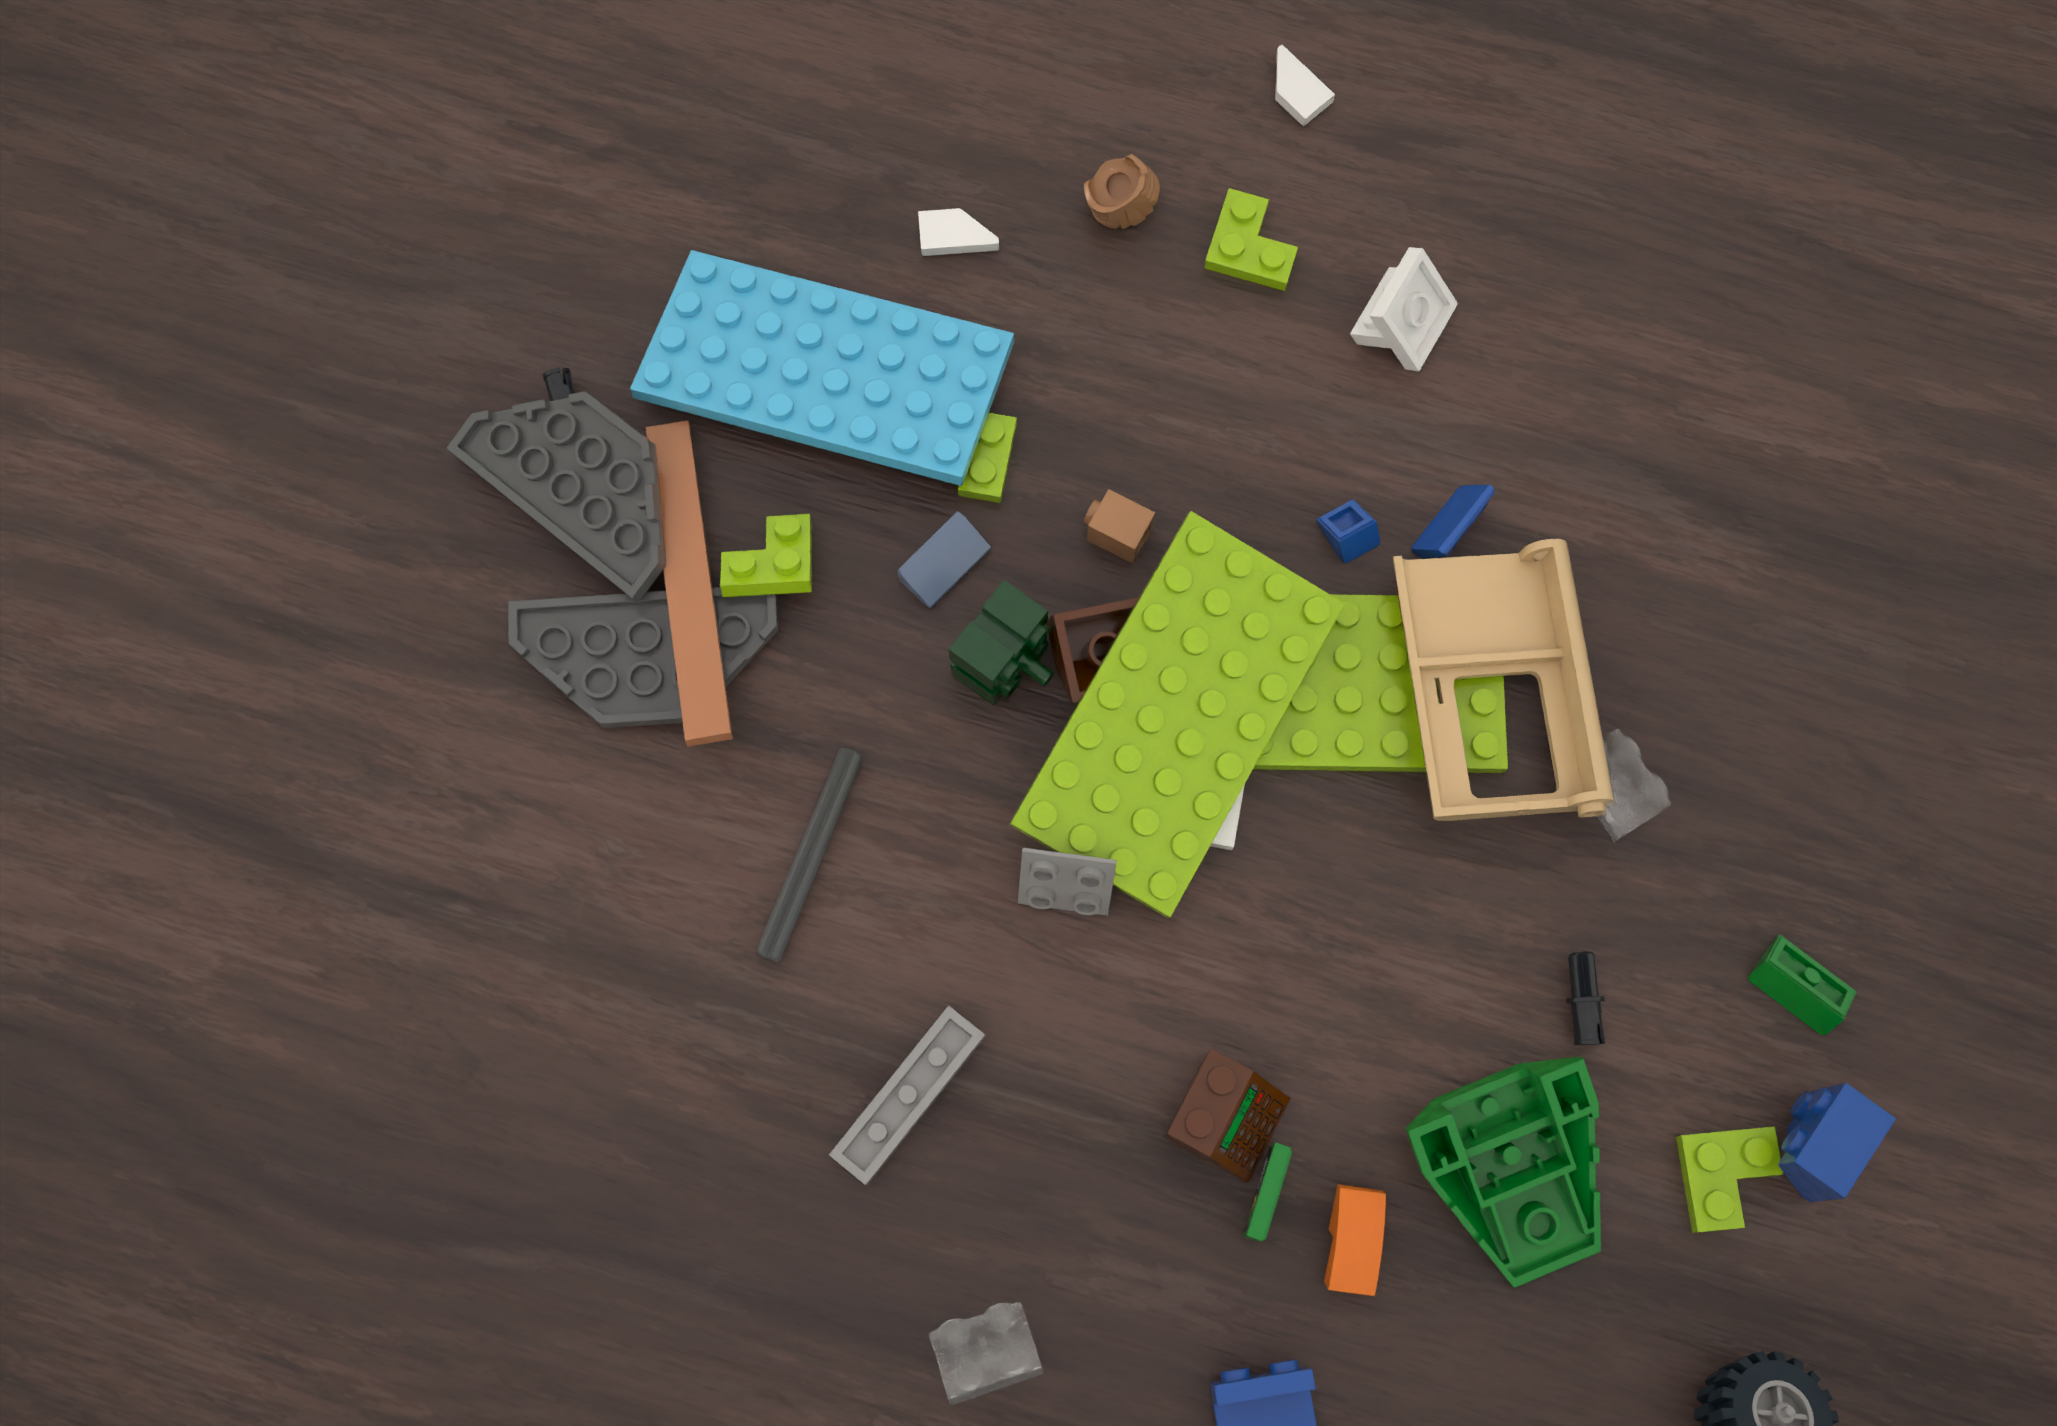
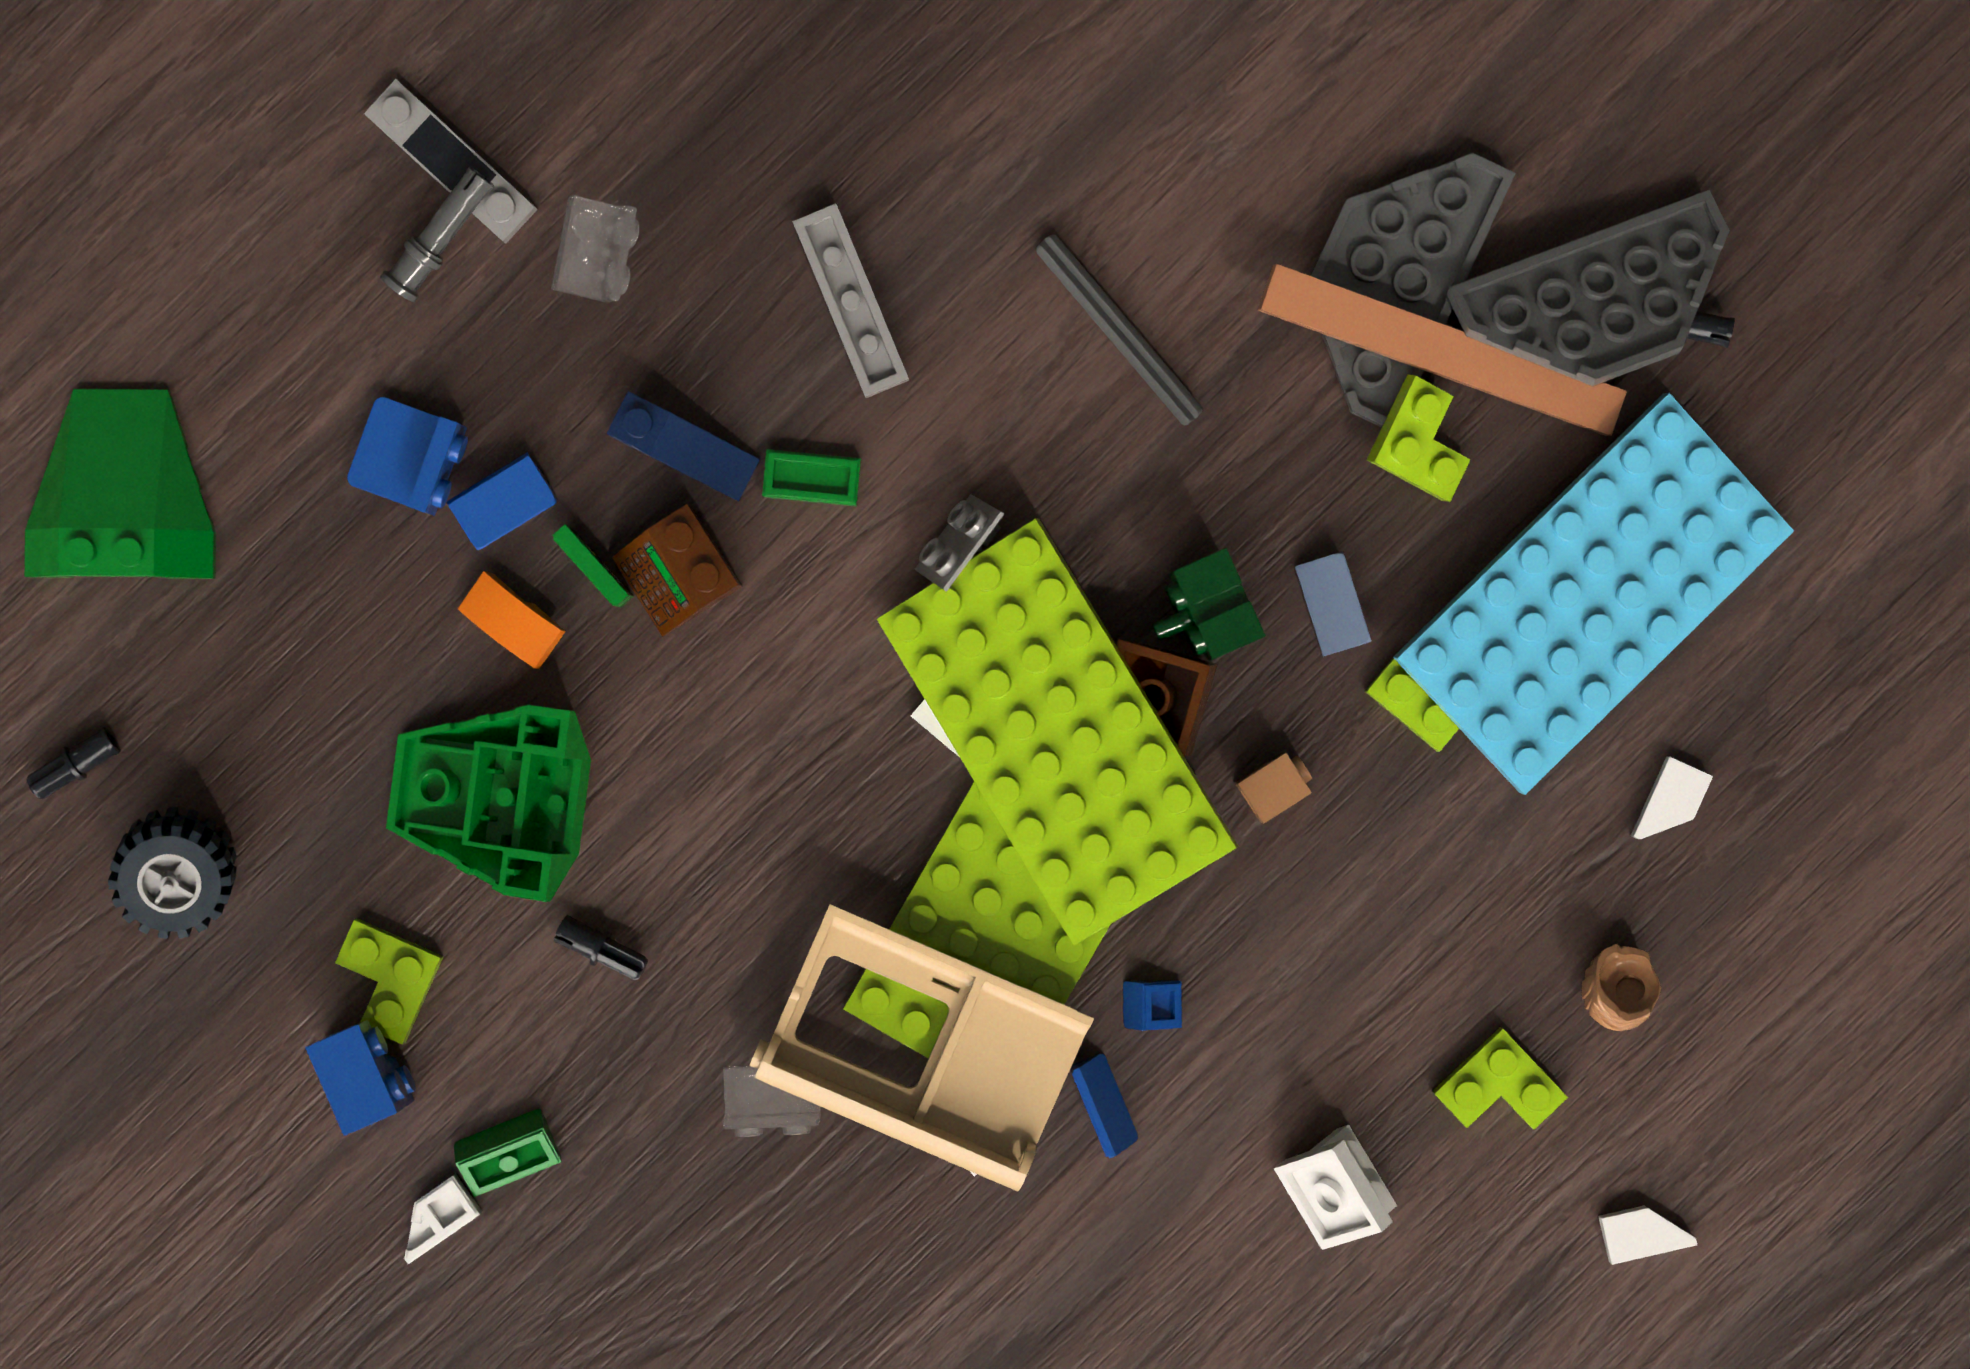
camera: 120 degrees right, 15 degrees up
(1080, 1045) = (811, 477): none -> green tile
(1117, 1172) = (683, 446): none -> dark blue slope
(1257, 1308) = (502, 501): none -> blue slope
(1892, 1011) = (439, 1216): none -> white tile

